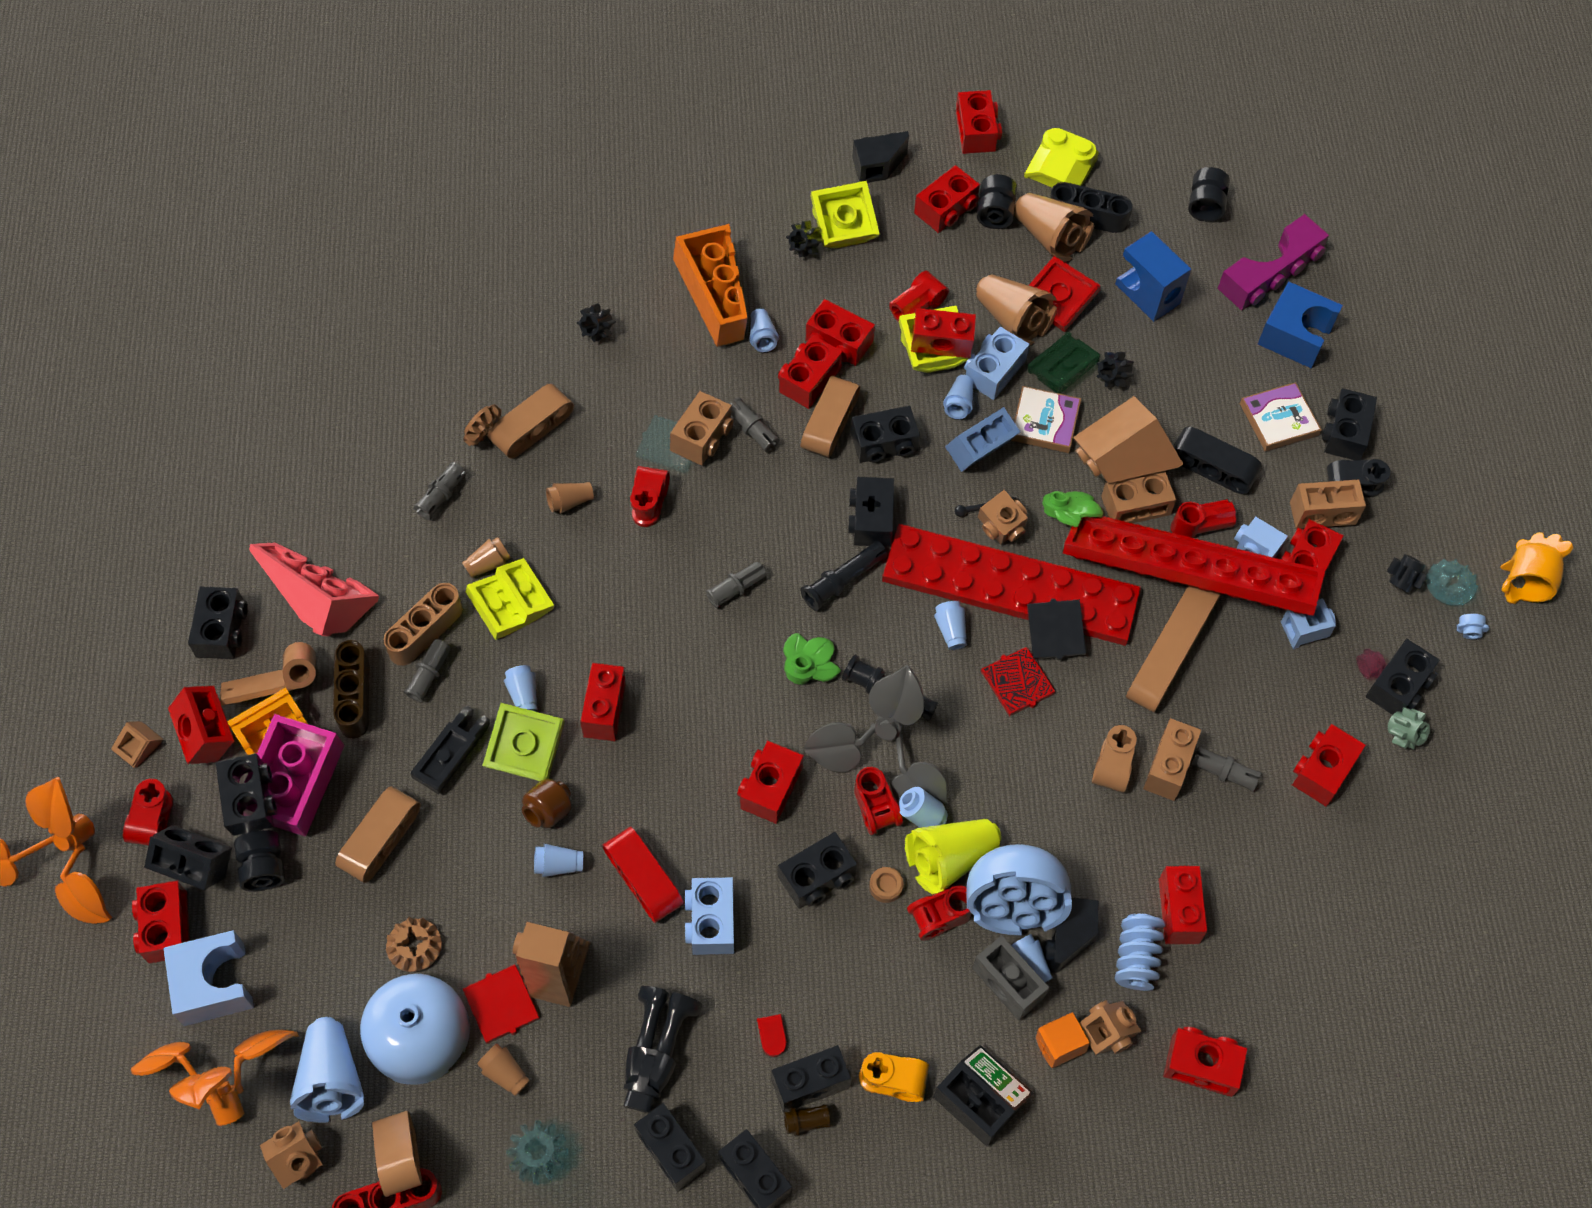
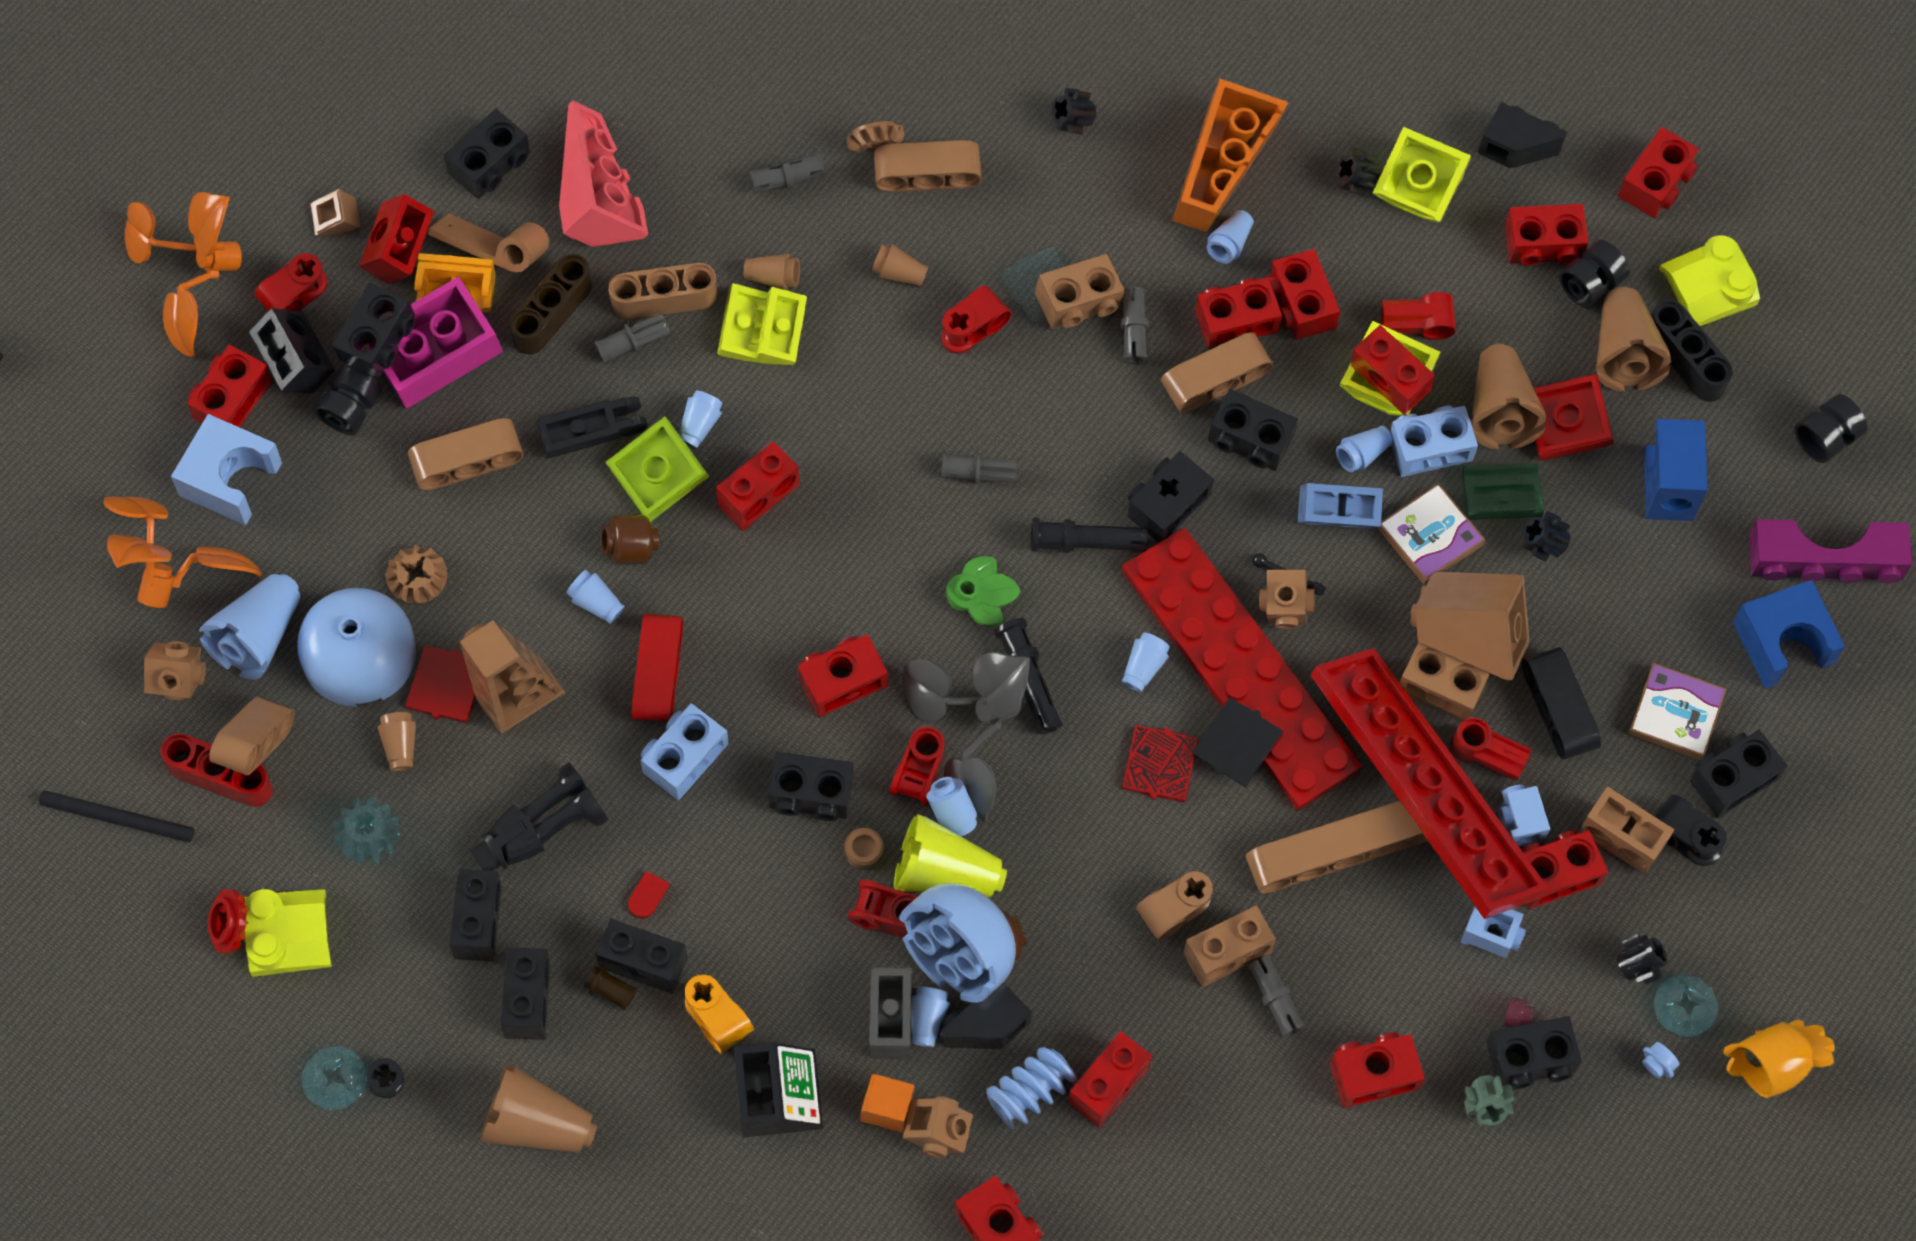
camera: 40 degrees right, 5 degrees up
(1071, 507) = (1368, 637): bright green plate -> none

